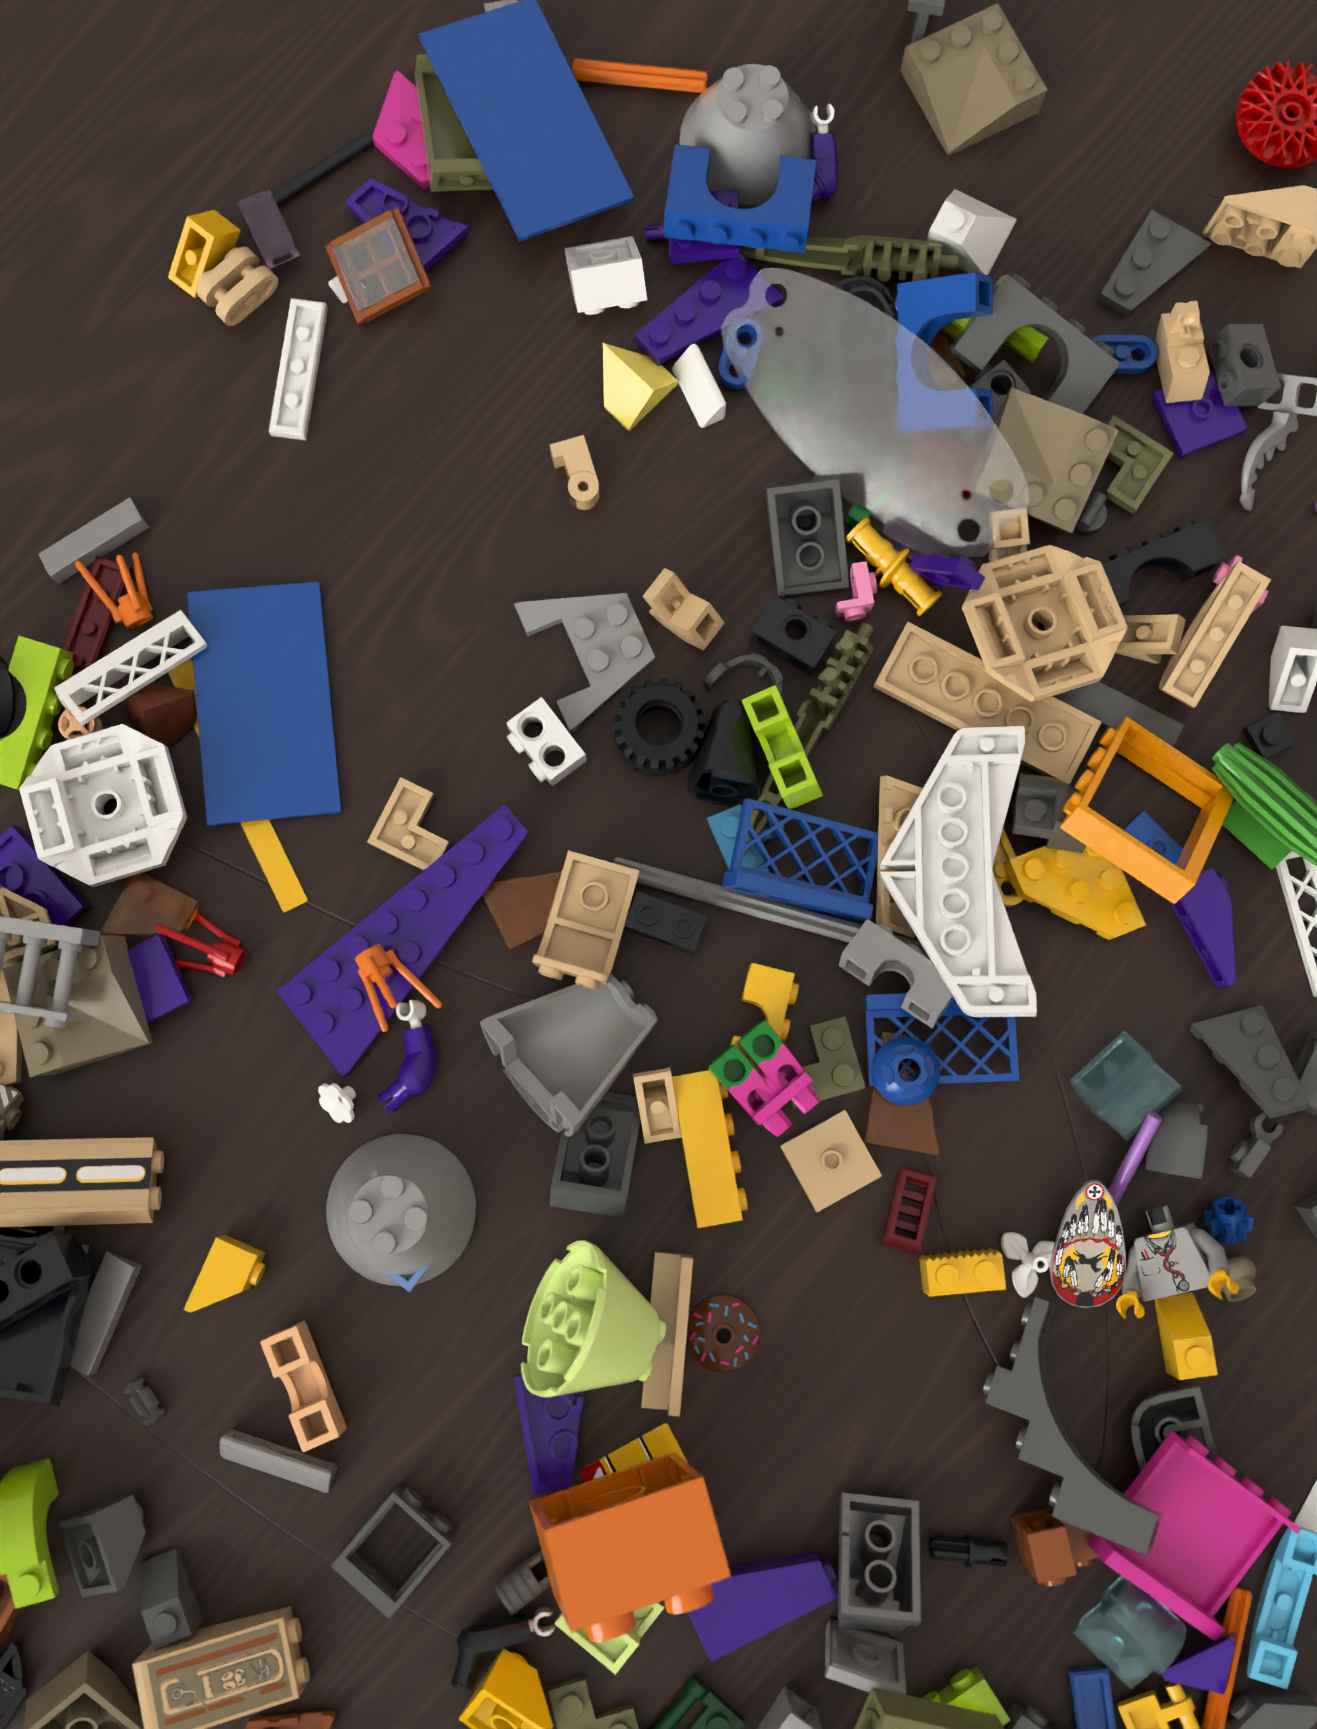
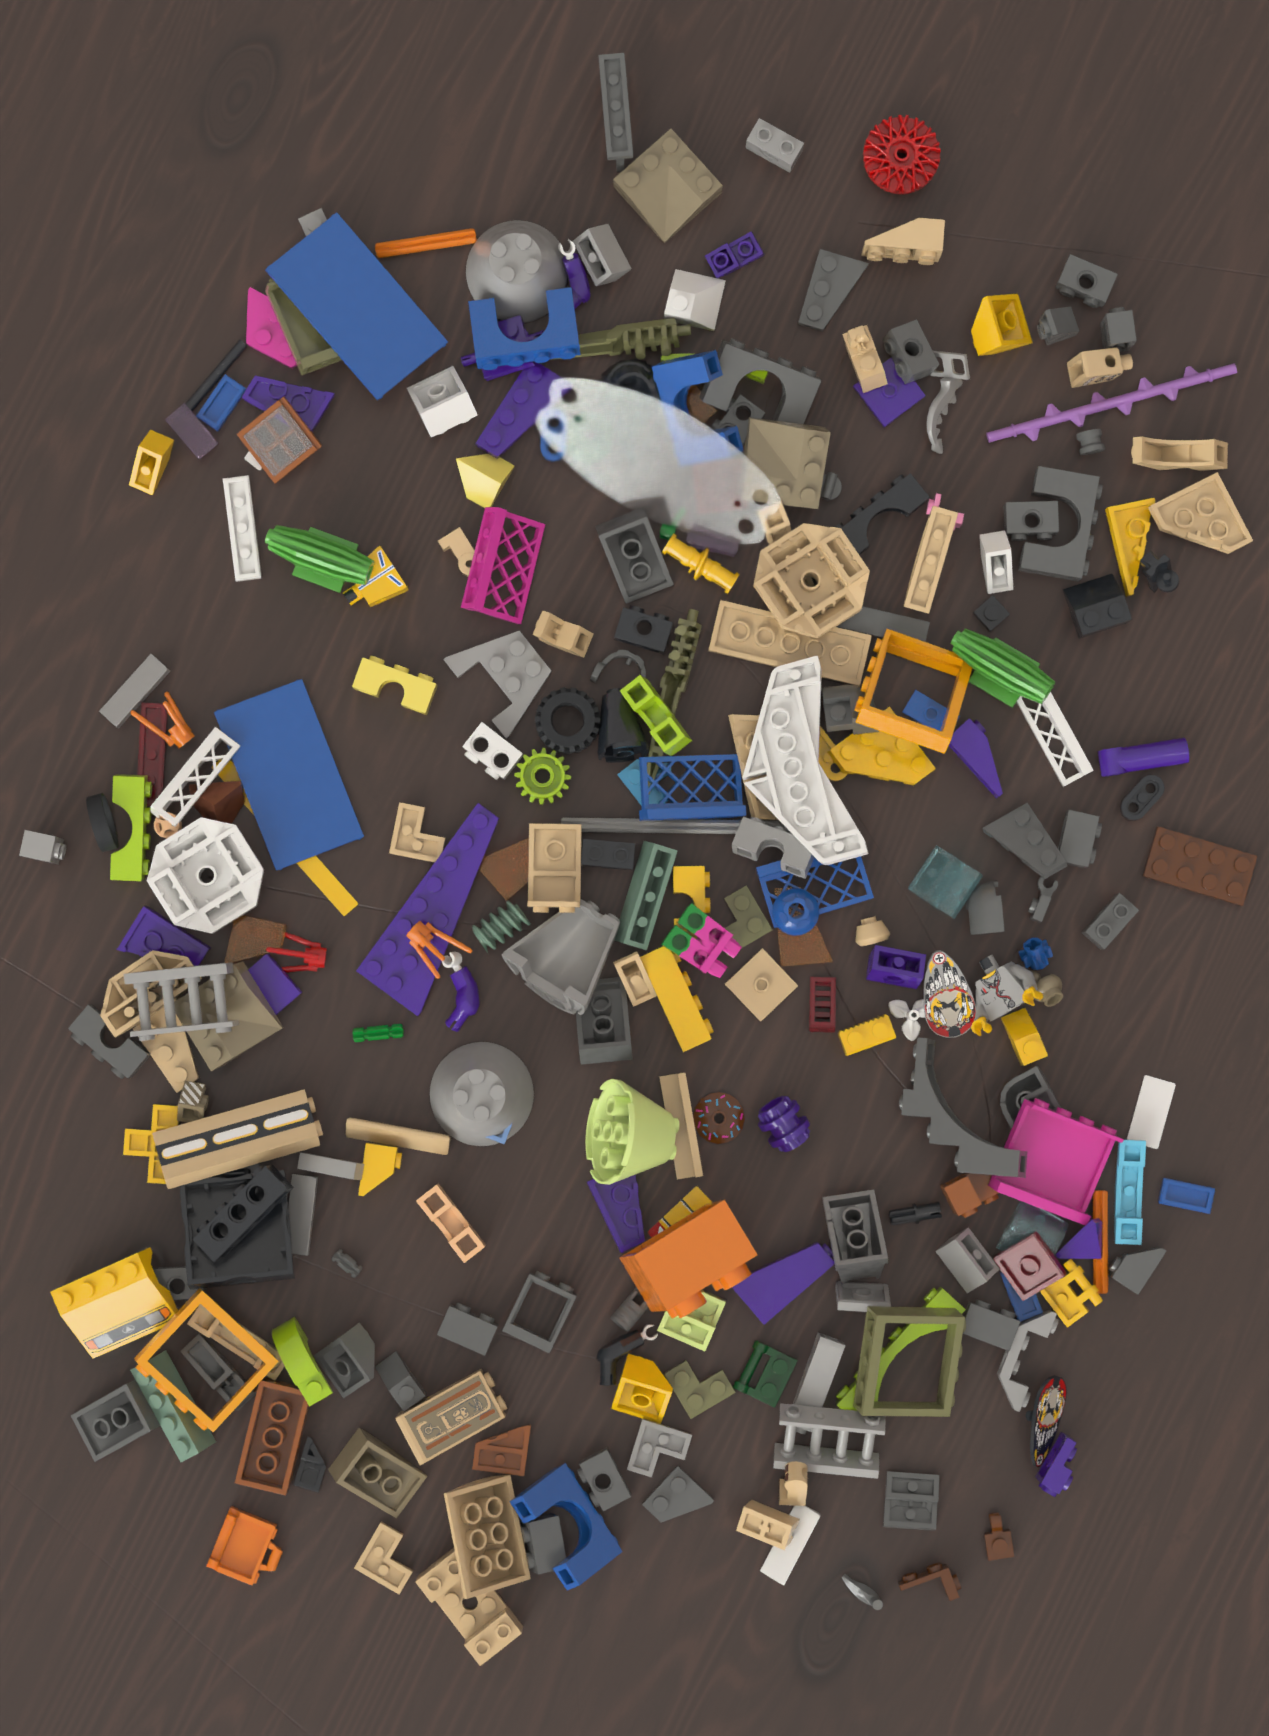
camera: 15 degrees left, 5 degrees up
(158, 1257) = (330, 1166): none -> light grey piece
(237, 285) = (179, 465): tan brick -> none
(268, 1236) = (397, 1136): none -> tan slope
(277, 1460) = (446, 1278): light grey slope -> none
(282, 1085) = (378, 1032): none -> green axle
(285, 1546) = (467, 1328): none -> dark grey brick
(317, 205) = (221, 403): none -> blue tile
(337, 1101) = (419, 1034): white plant -> none
(387, 427) = (320, 556): none -> bright green plate
(415, 601) = (374, 675): none -> light yellow arch
(452, 477) = (382, 584): none -> yellow torso
(491, 981) = (500, 925): none -> sand green piece
(599, 774) = (542, 762): none -> lime gear
(610, 477) = (485, 556): none -> dark pink fence
(699, 387) = (530, 467): white slope -> none
(702, 992) = (645, 895): none -> sand green brick
(816, 1378) = (786, 1127): none -> dark purple piece
(863, 587) = (683, 582): bright pink bracket -> none
(865, 140) = (602, 254): none -> light grey brick
(947, 571) = (738, 561): dark purple plate -> none
(1003, 1128) = (871, 932): none -> tan cone
(1027, 1187) = (896, 967): none -> dark purple brick
(1029, 1644) = (965, 1260): none -> light grey brick
(1037, 192) = (734, 255): none -> dark purple slope
(1120, 1680) = (1029, 1265): none -> plate
(1124, 64) = (774, 145): none -> light grey brick
(1131, 344) = (822, 362): blue plate -> none
(1134, 1156) = (961, 929): medium lavender bar -> none
(1140, 465) = (856, 441): olive plate -> none
(1151, 636) = (888, 566): tan slope -> none

